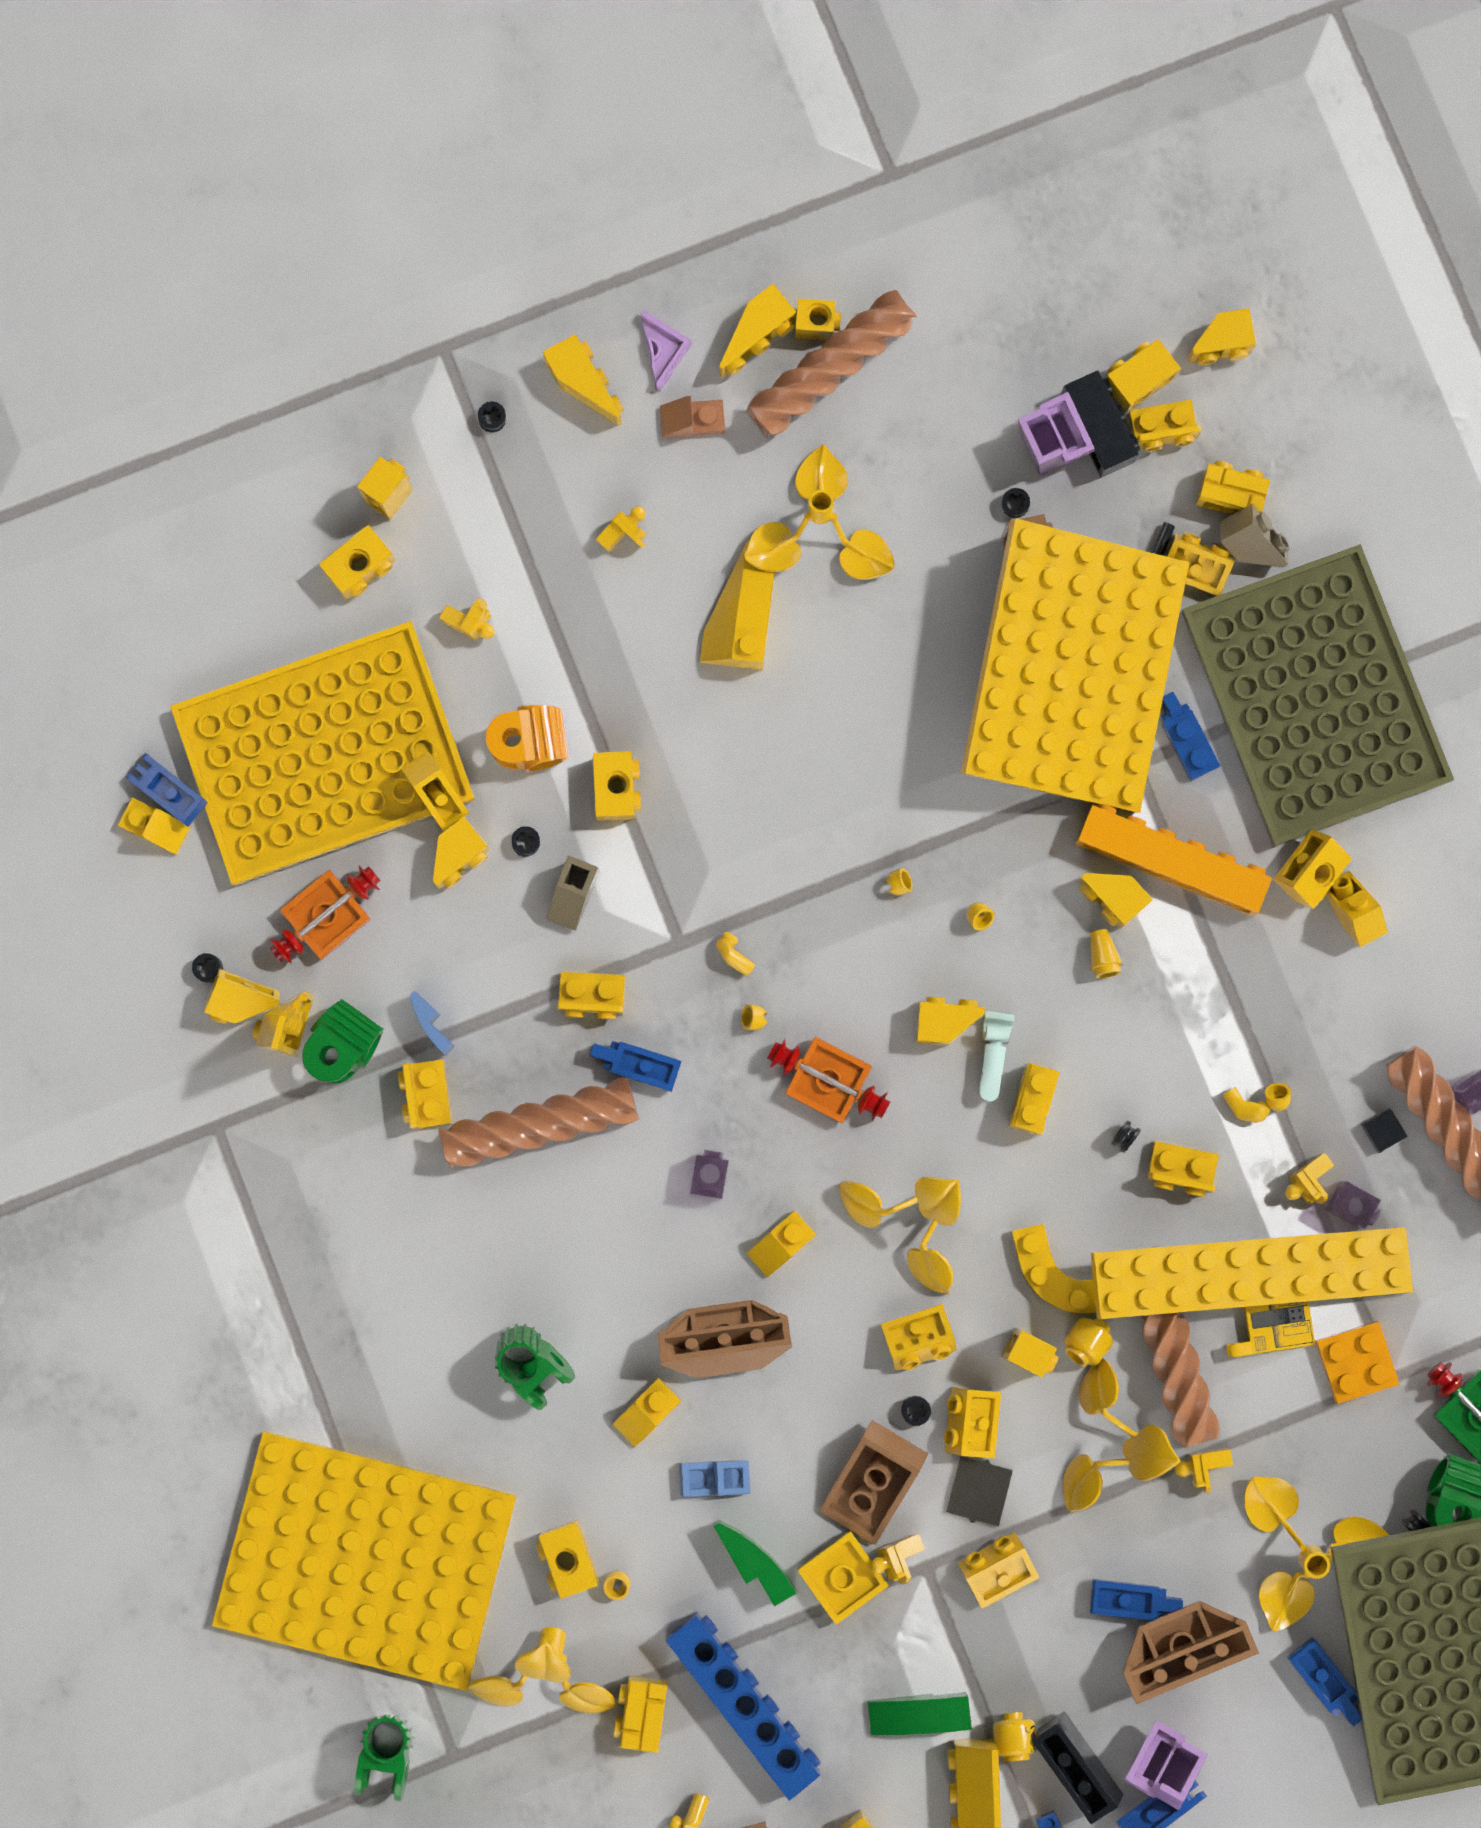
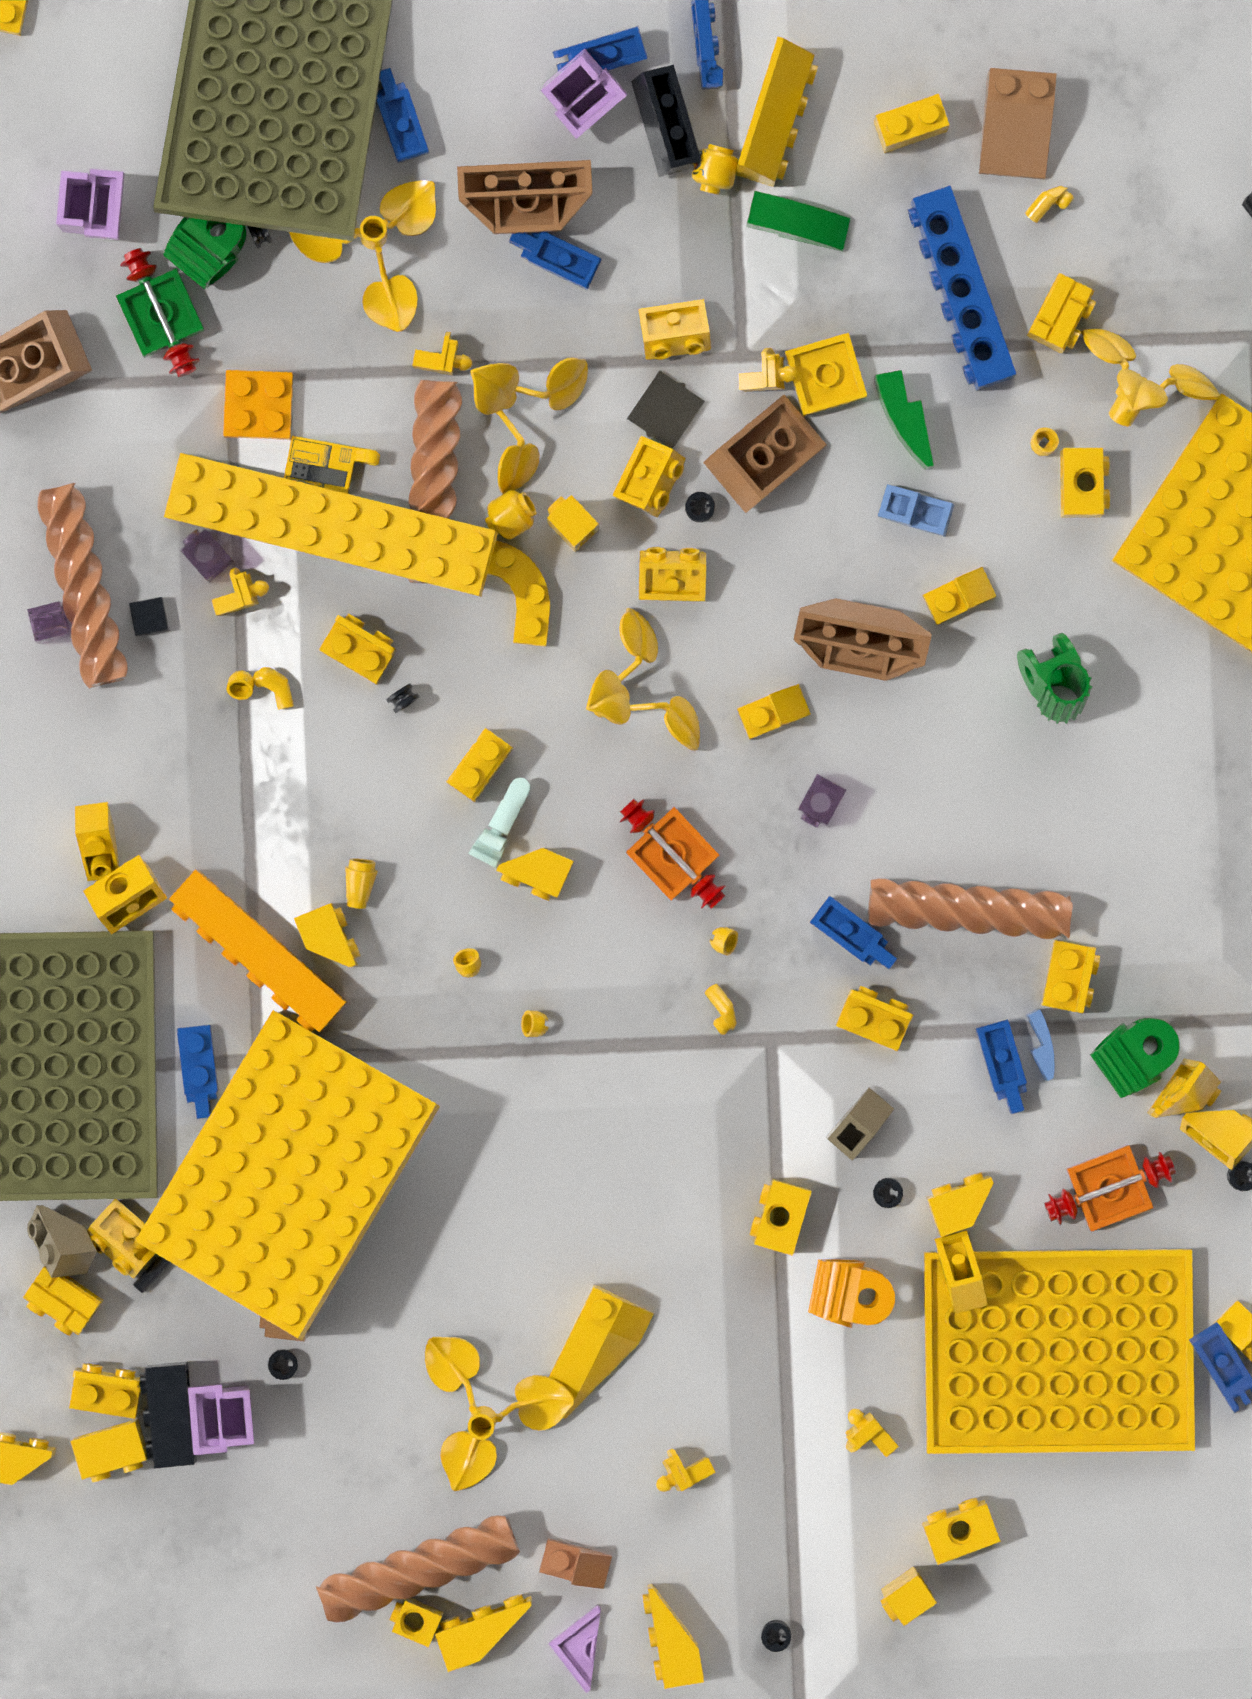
camera: 160 degrees left, 5 degrees up
(460, 994) = (1003, 1063): none -> blue hinge

